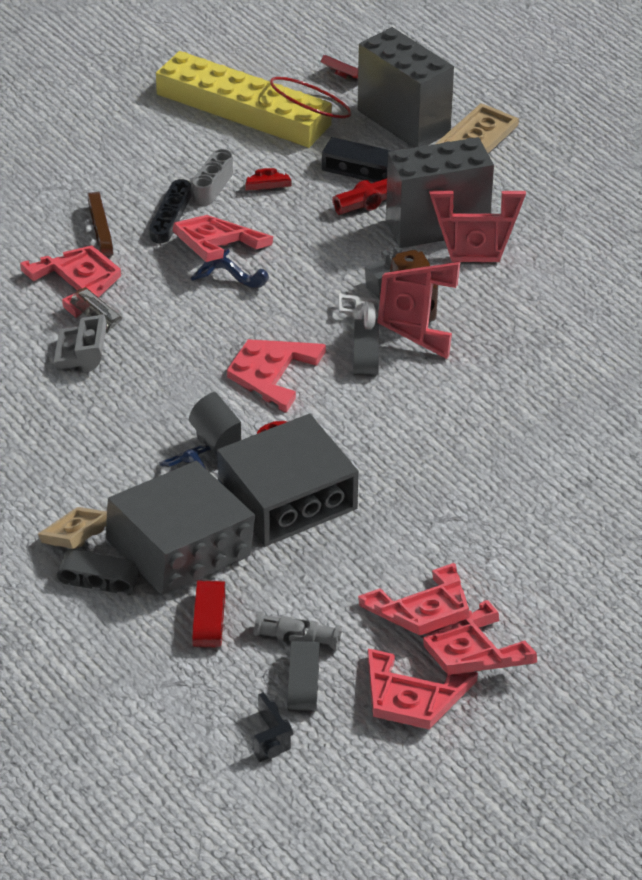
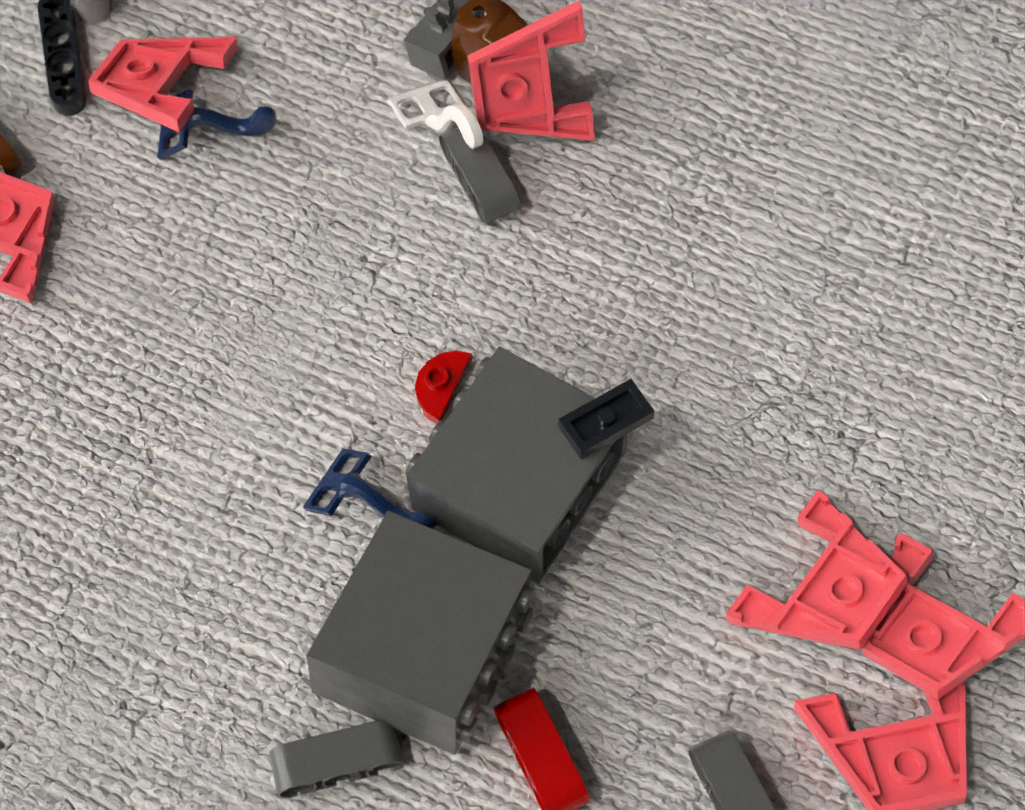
camera: 25 degrees left, 20 degrees up
(74, 528) = (259, 699): tan plate -> none
(81, 344) = (72, 354): light grey brick -> none
(92, 305) = (57, 279): clear smoke slope -> none
(215, 423) = (365, 420): dark grey brick -> none
(264, 362) = (349, 265): coral wing -> none
(294, 630) = (667, 723): light grey piece -> none
(342, 462) = (606, 418): none -> black plate

